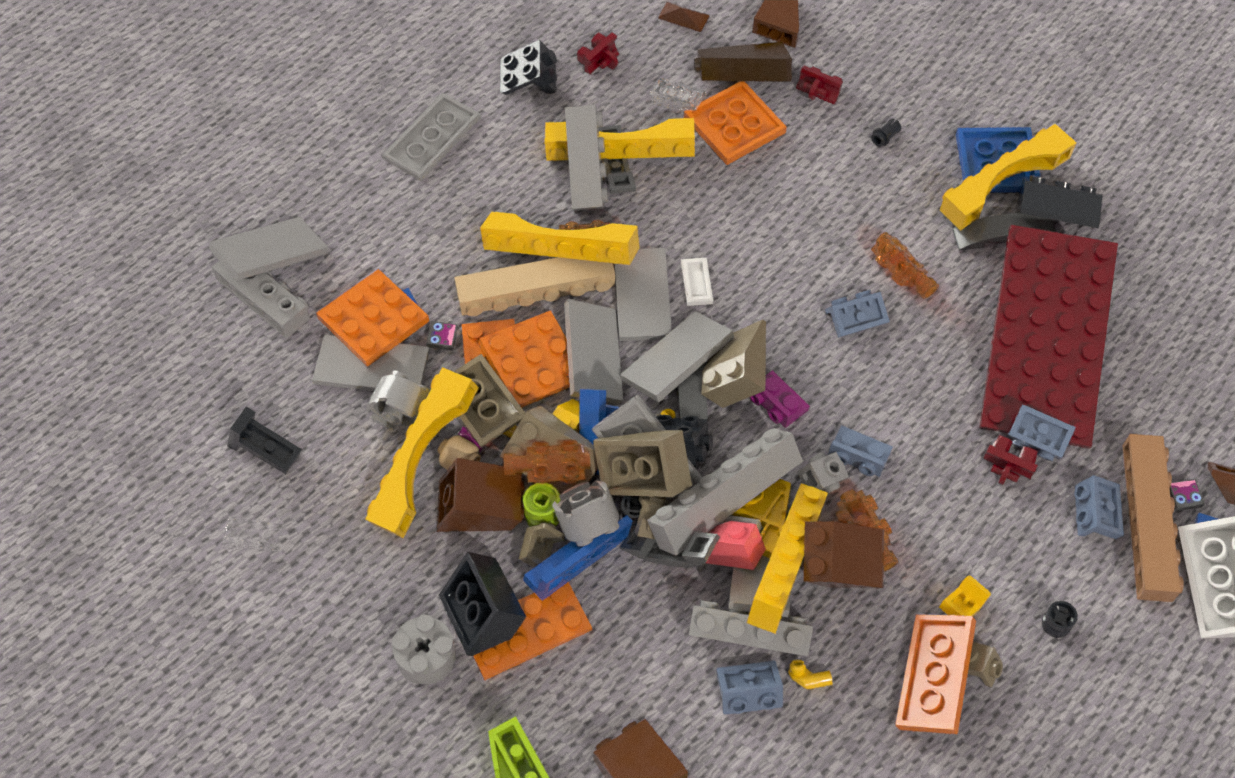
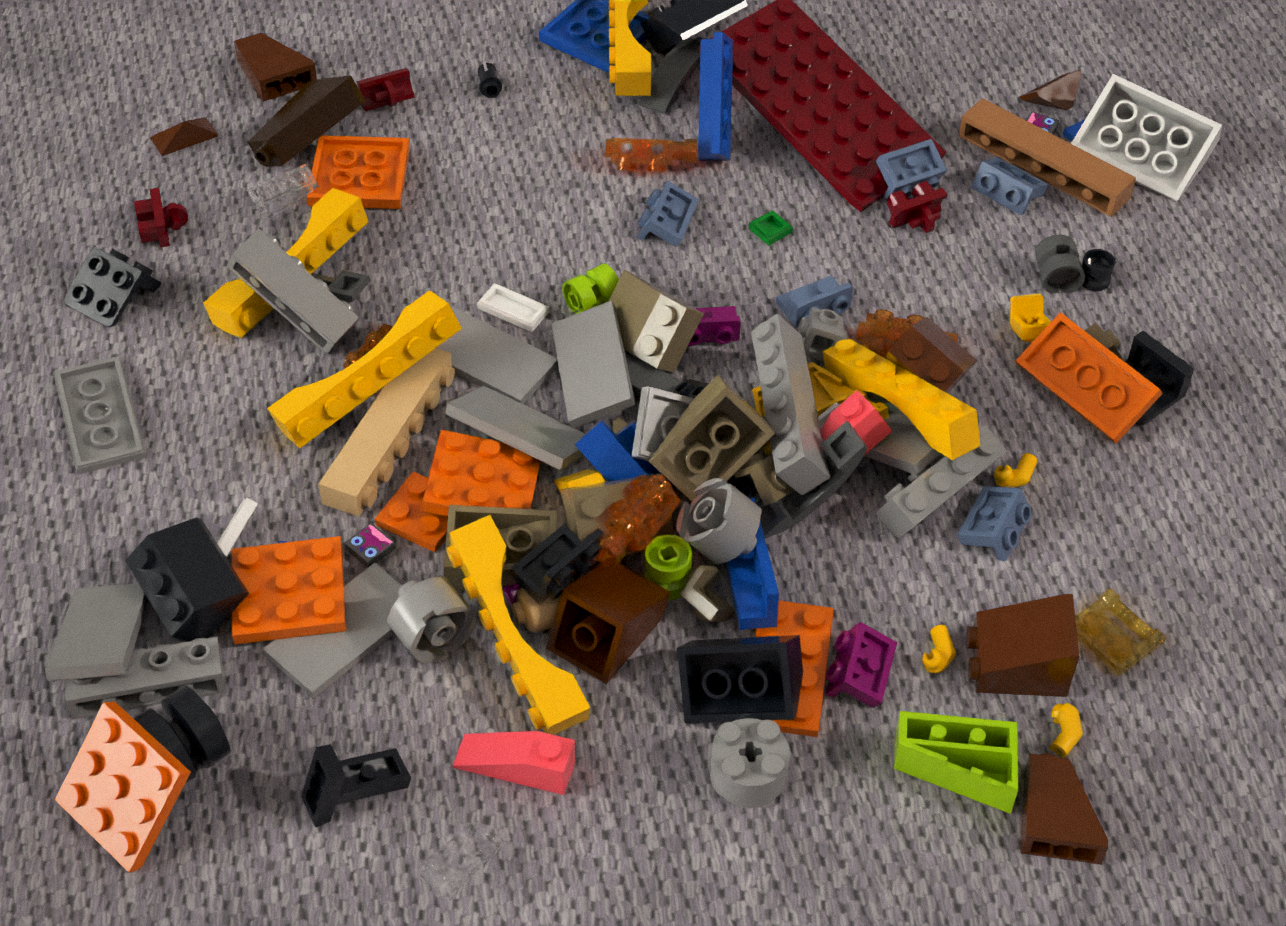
camera: 55 degrees left, 10 degrees down
(170, 333) = (122, 786): none -> plate
(221, 334) = (189, 730): none -> black wheel
(333, 262) = (187, 579): none -> black slope
(340, 520) = (520, 758): none -> coral slope
(391, 261) = (236, 525): none -> white tile
(475, 439) = (555, 561): none -> black bracket
(556, 672) = (861, 664): none -> magenta bracket
(607, 719) = (942, 654): none -> yellow arm
(752, 311) = (590, 289): none -> lime wheel
(907, 381) = (770, 227): none -> green tile
(978, 269) = (715, 98): none -> blue fence
(979, 720) = (1161, 368): none -> black bracket
(1040, 588) = (1059, 264): none -> dark grey wheel

